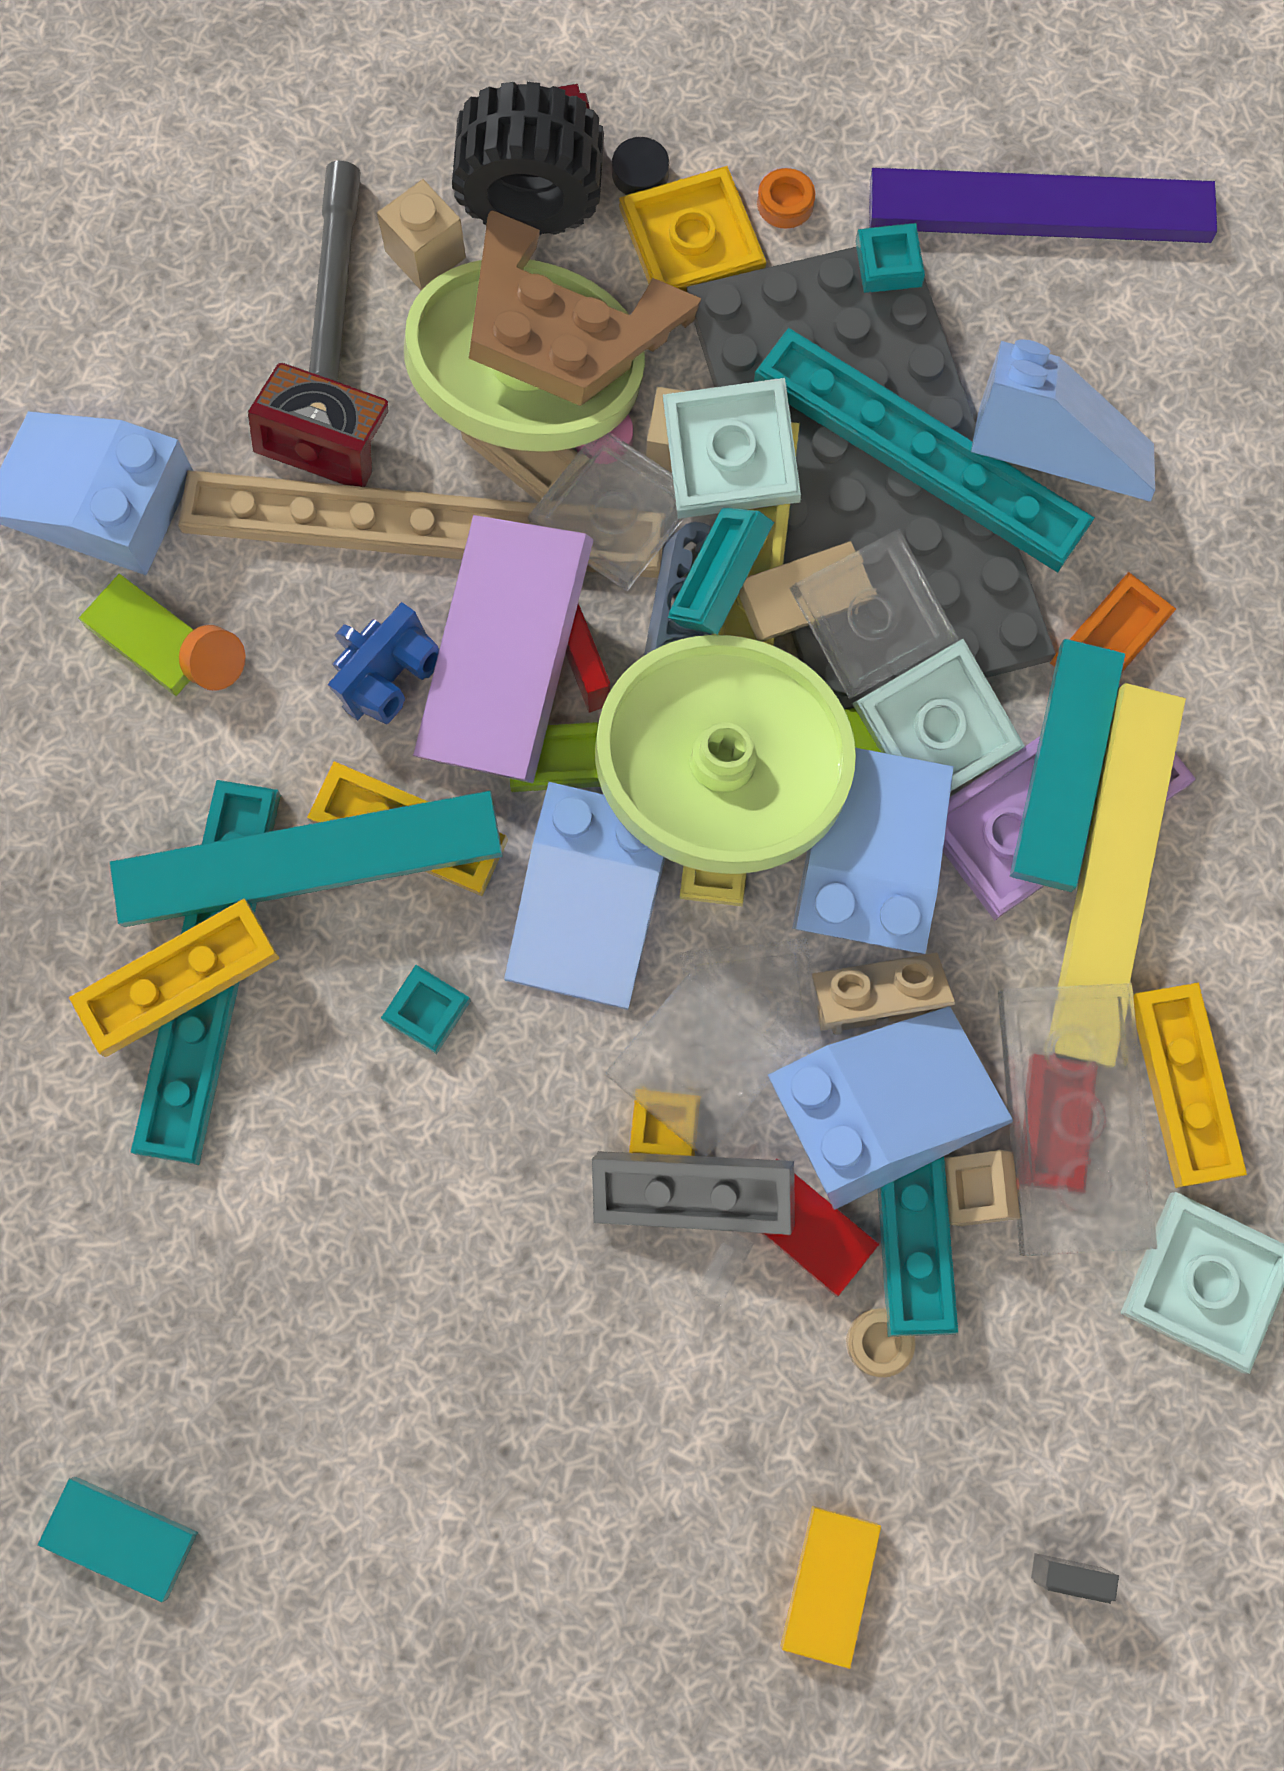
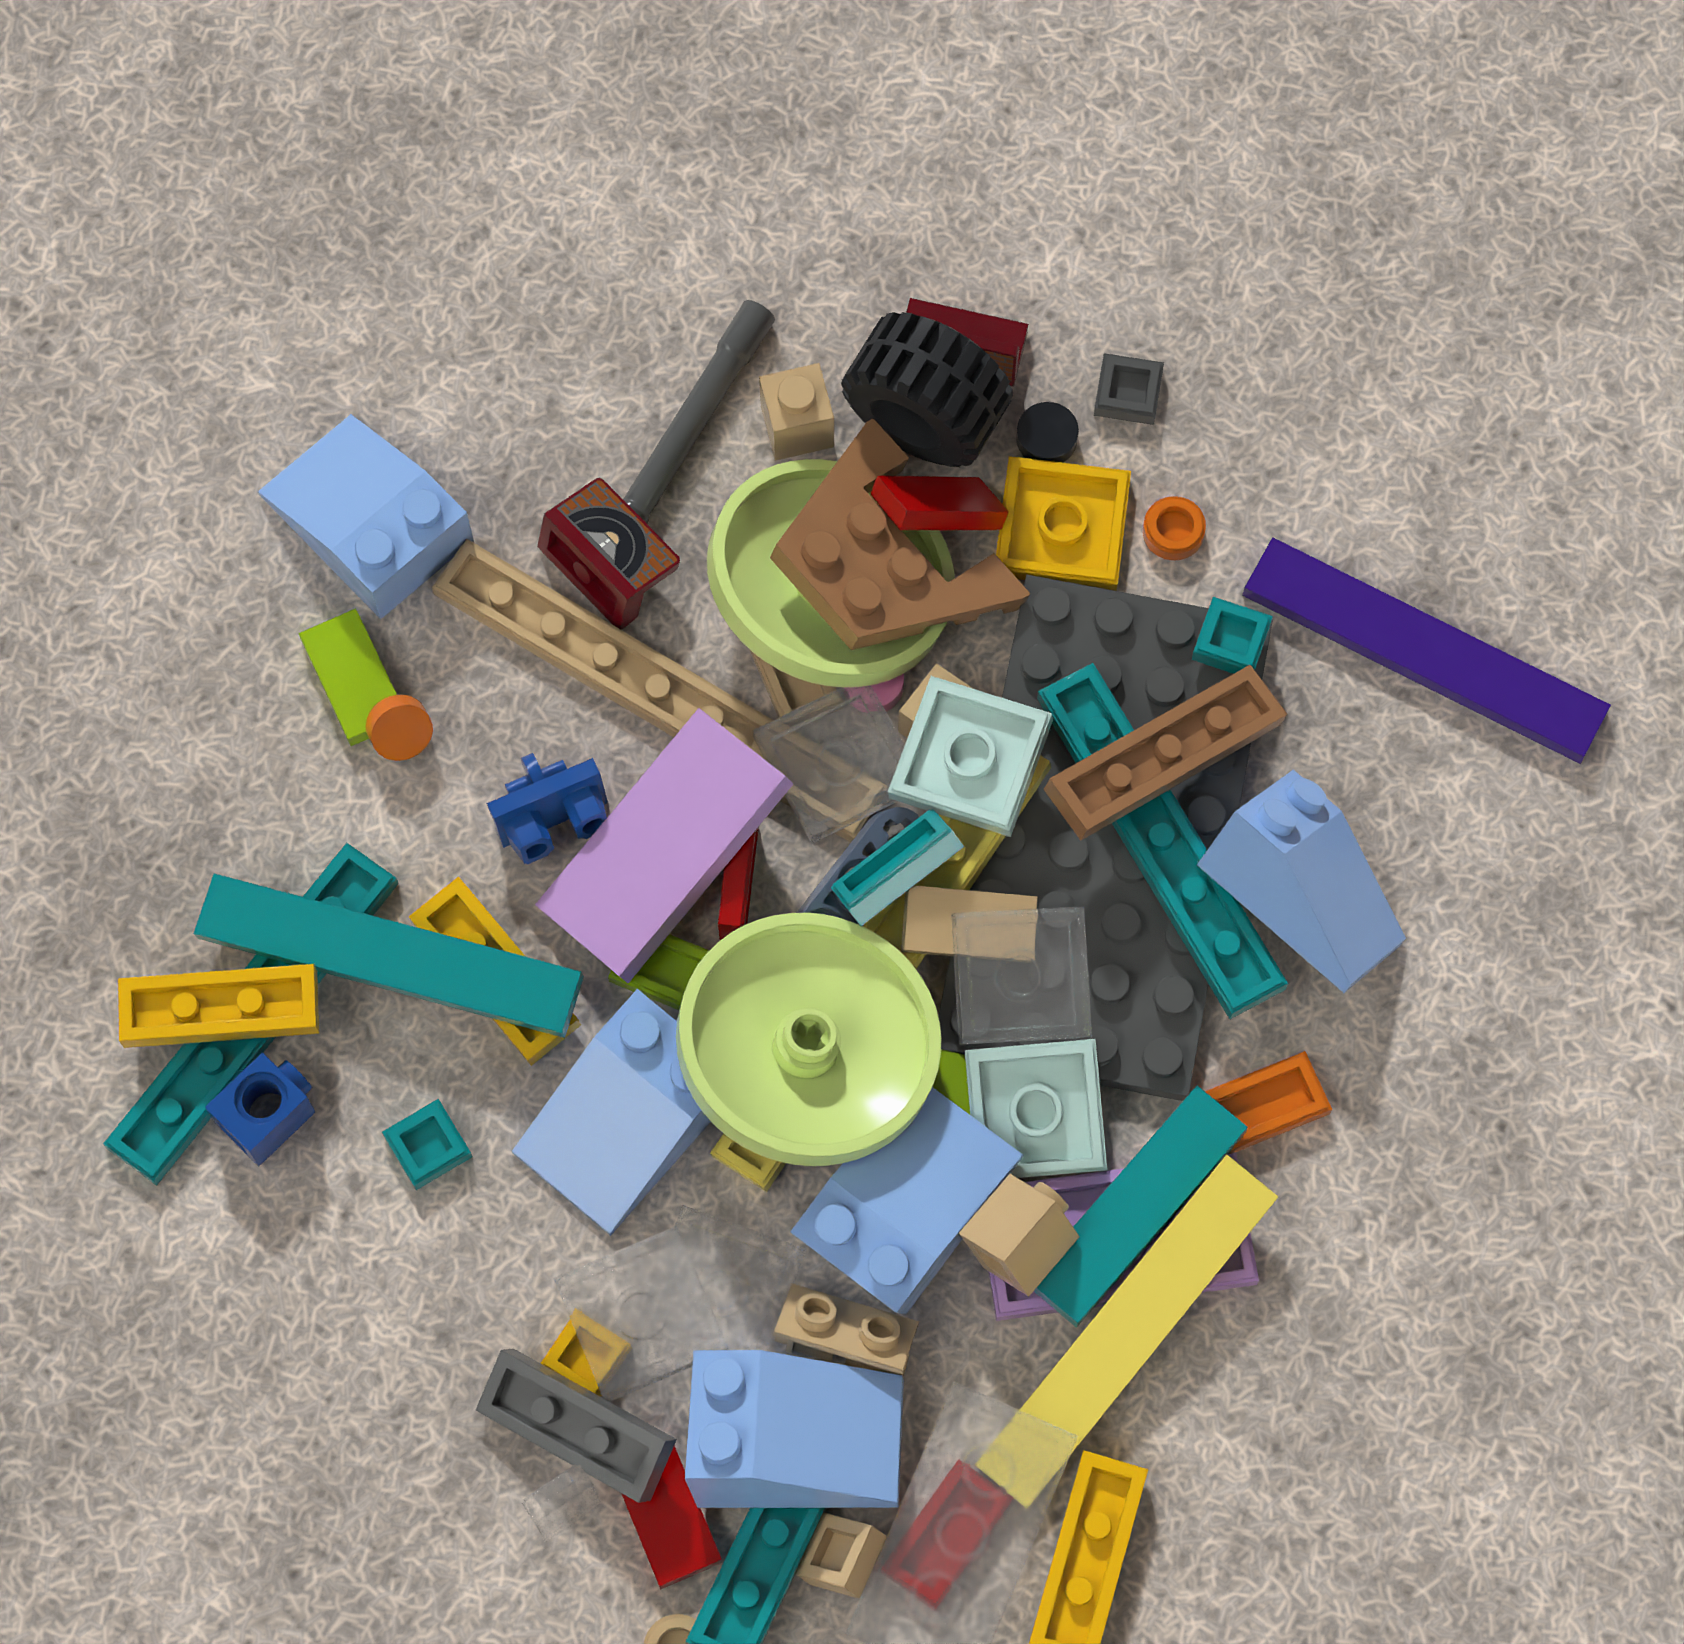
camera: 30 degrees right, 5 degrees down
(268, 1077) = (262, 1136): none -> blue brick
(585, 255) = (939, 503): none -> red tile
(687, 102) = (1128, 389): none -> dark grey tile
(893, 371) = (1165, 752): none -> medium nougat plate
(992, 833) = (1020, 1233): none -> tan brick

